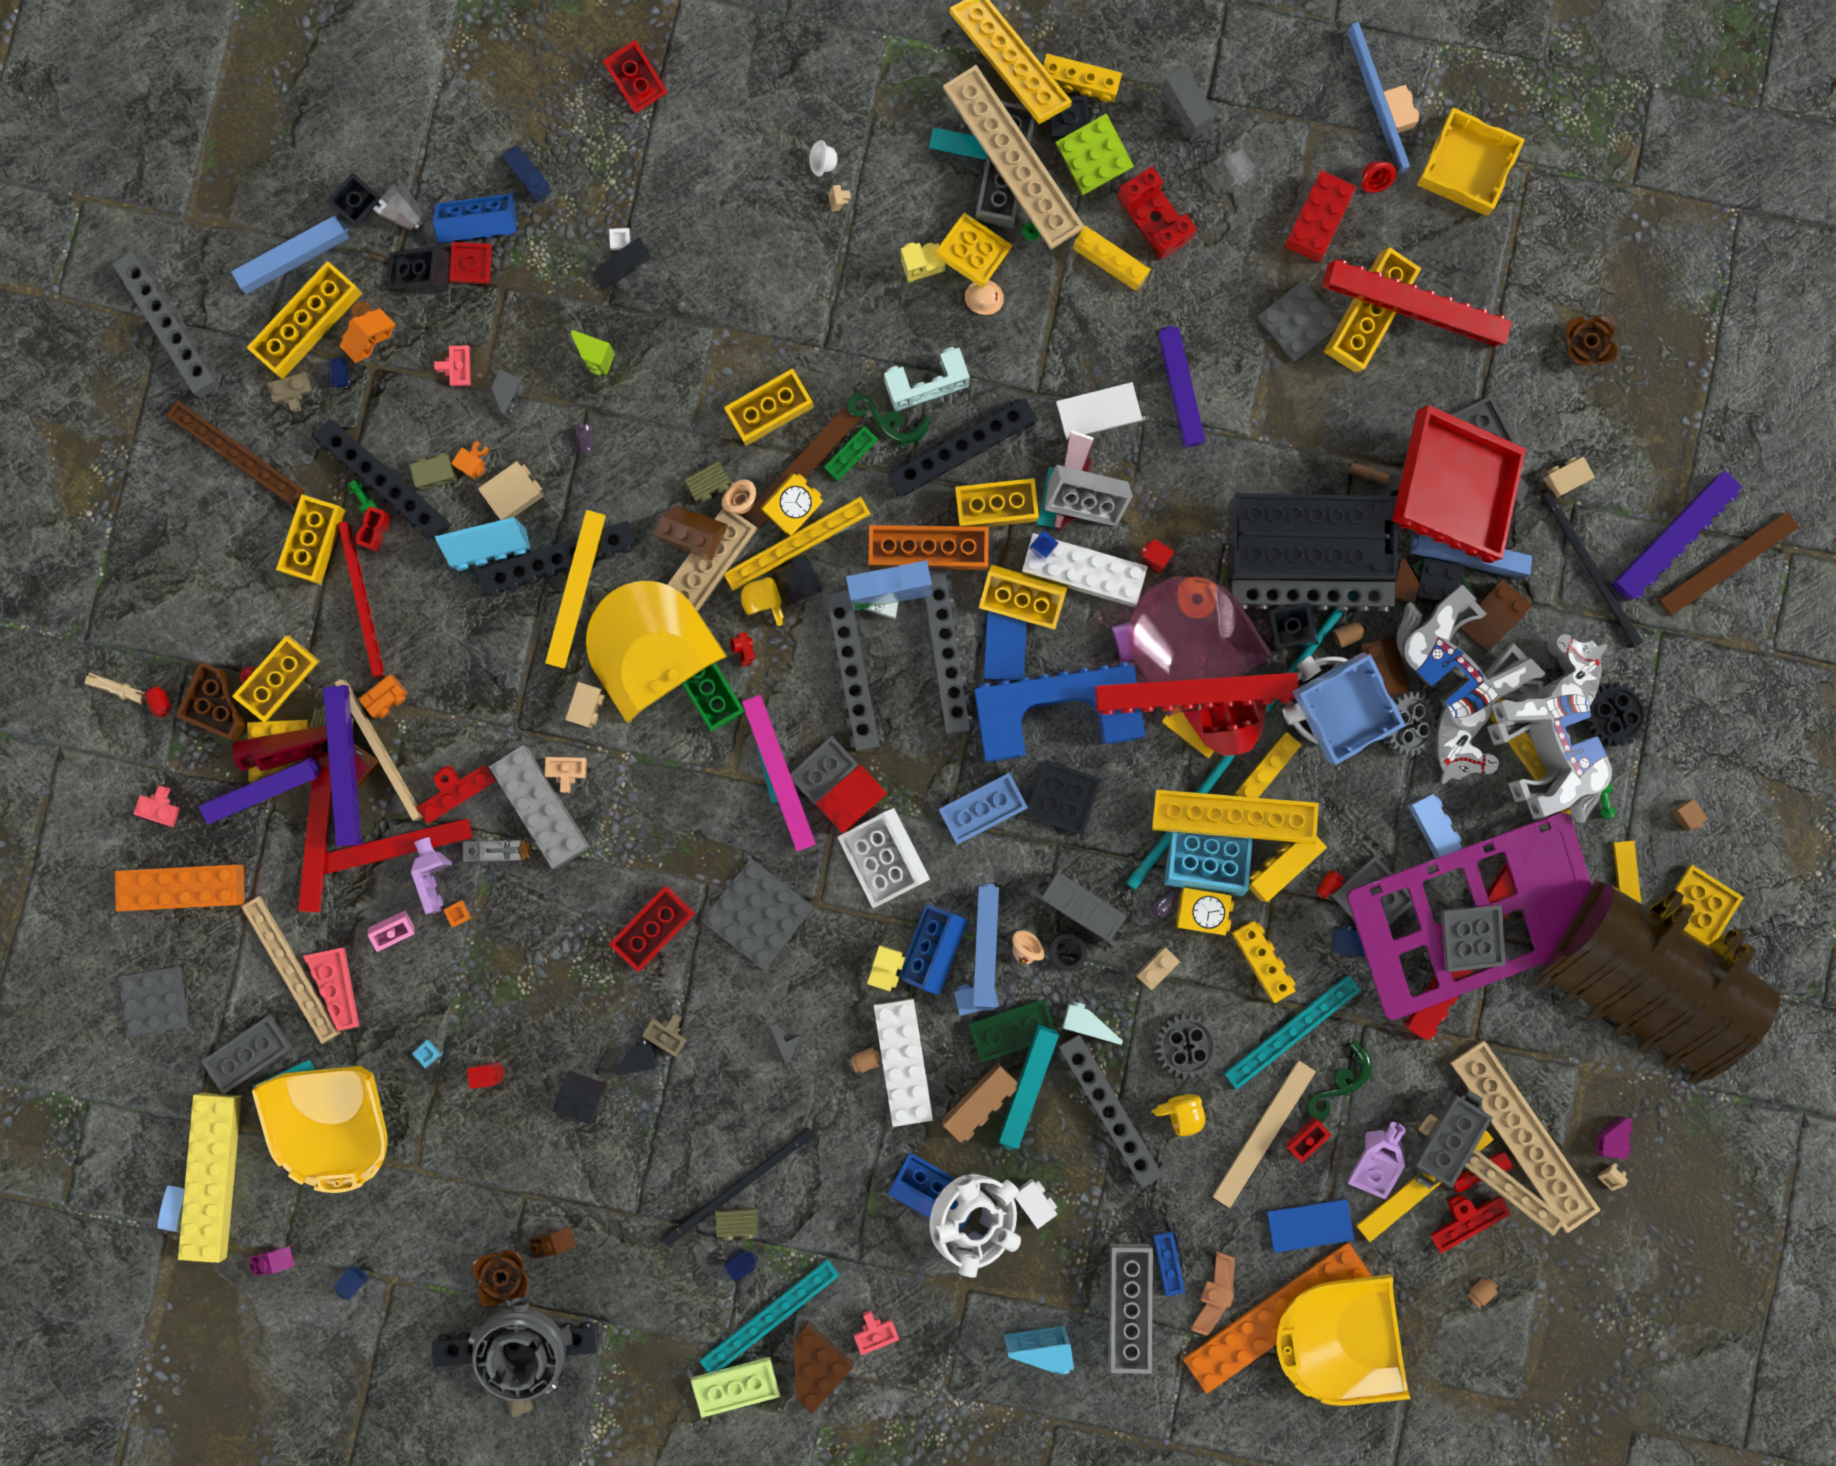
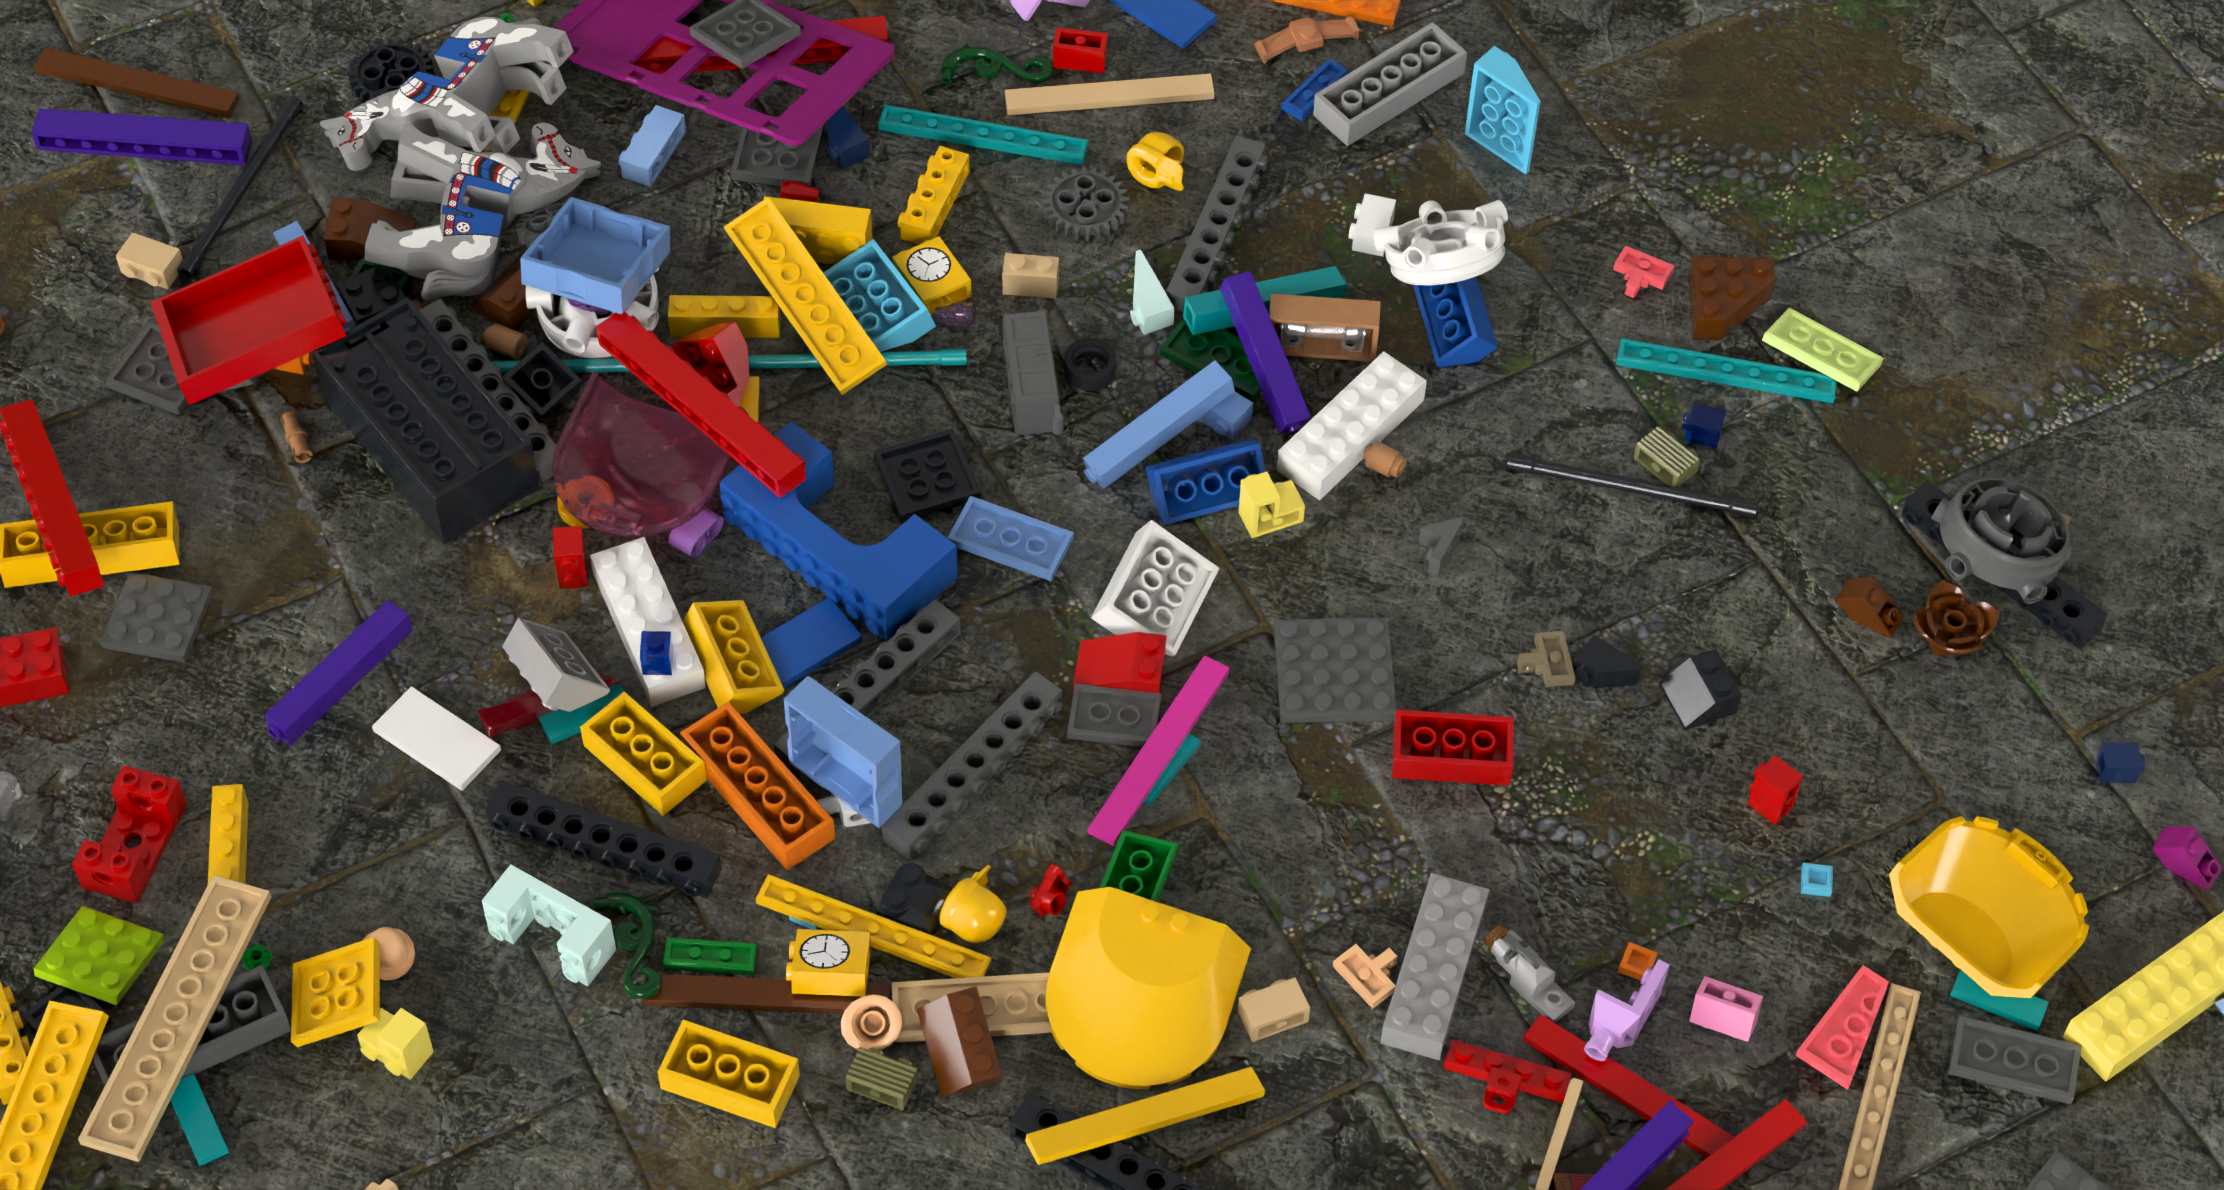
camera: 130 degrees left, 30 degrees down
(984, 1049) = (1265, 353): none -> dark purple brick
(1027, 947) = (1122, 396): light nougat hat -> none

